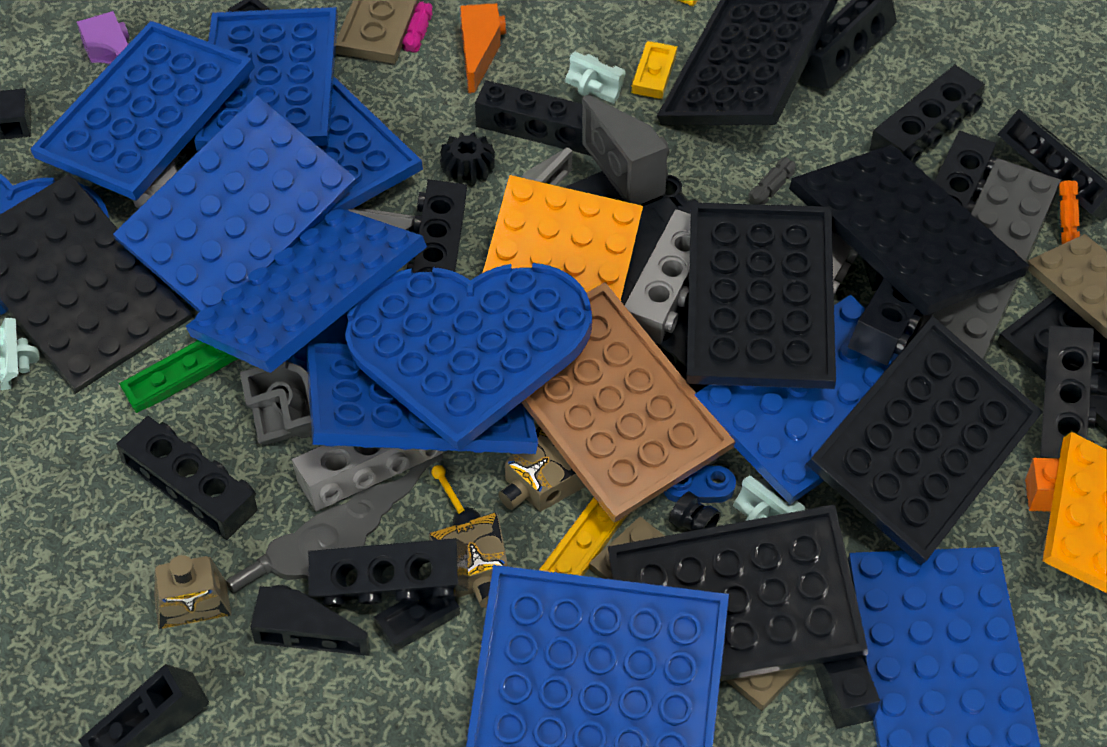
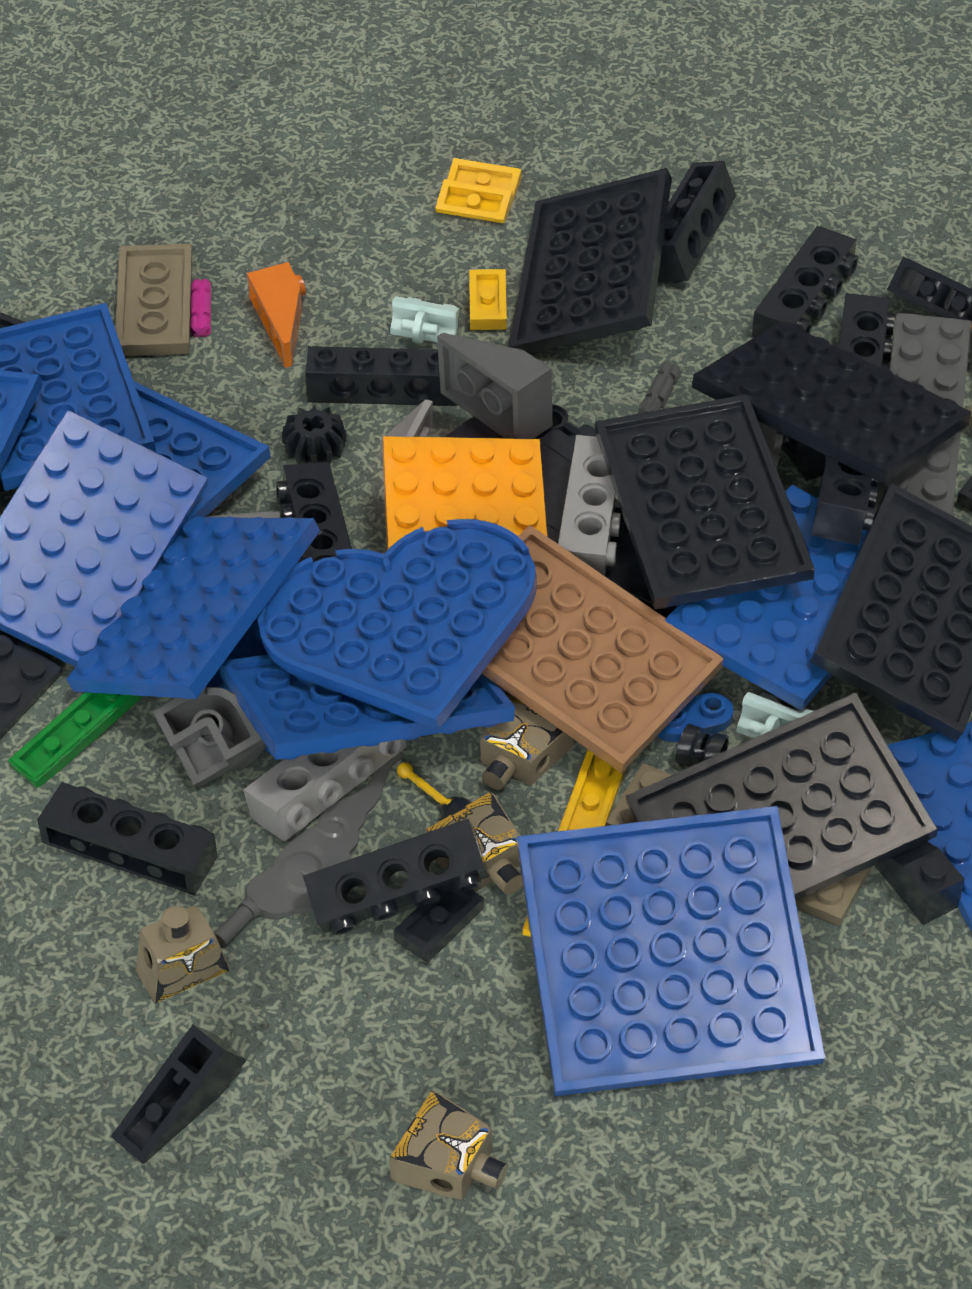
camera: 15 degrees left, 5 degrees down
(297, 621) = (315, 955): black slope -> none

